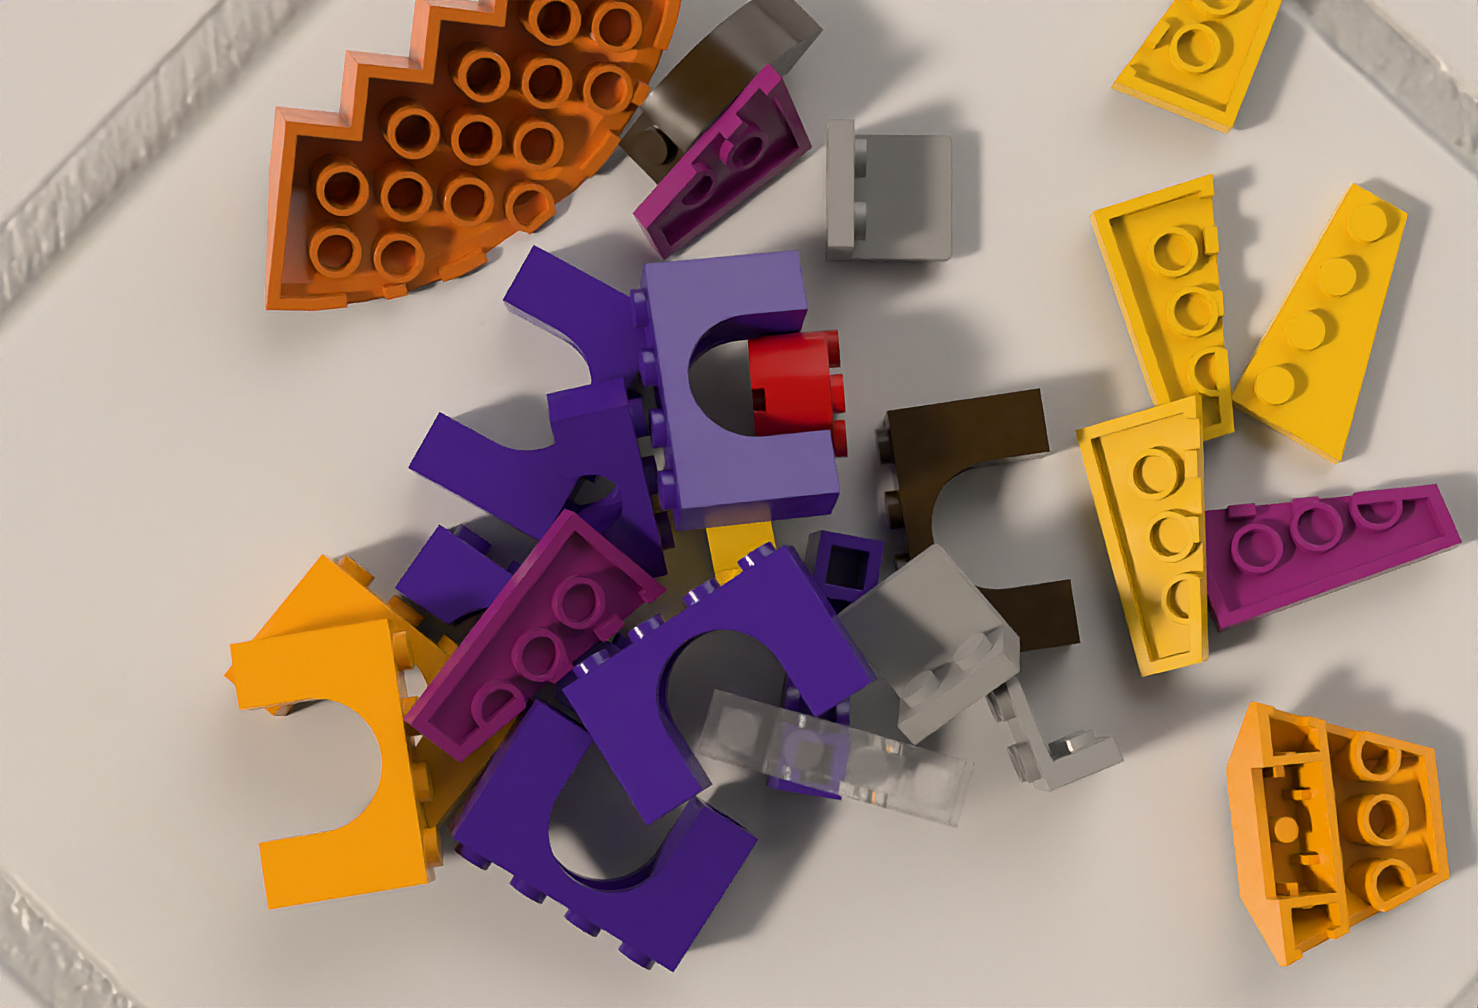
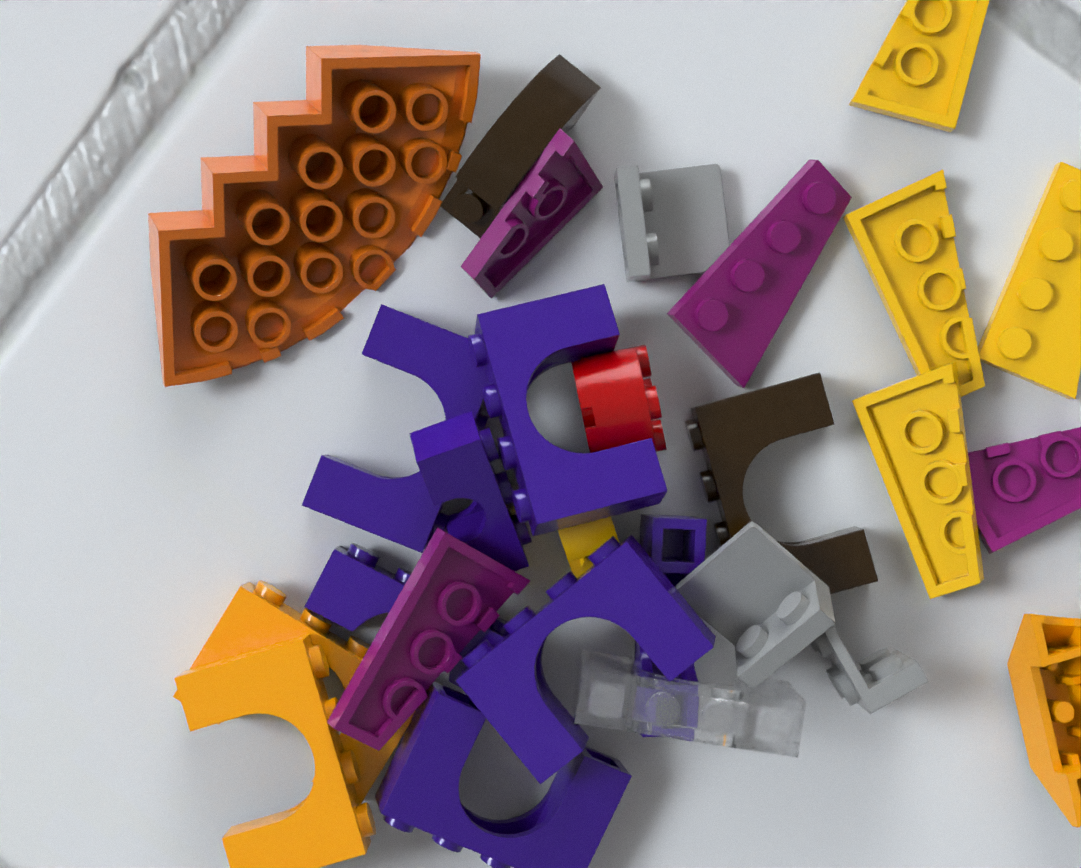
camera: 10 degrees left, 5 degrees up
(978, 275) = (755, 280): none -> magenta wing

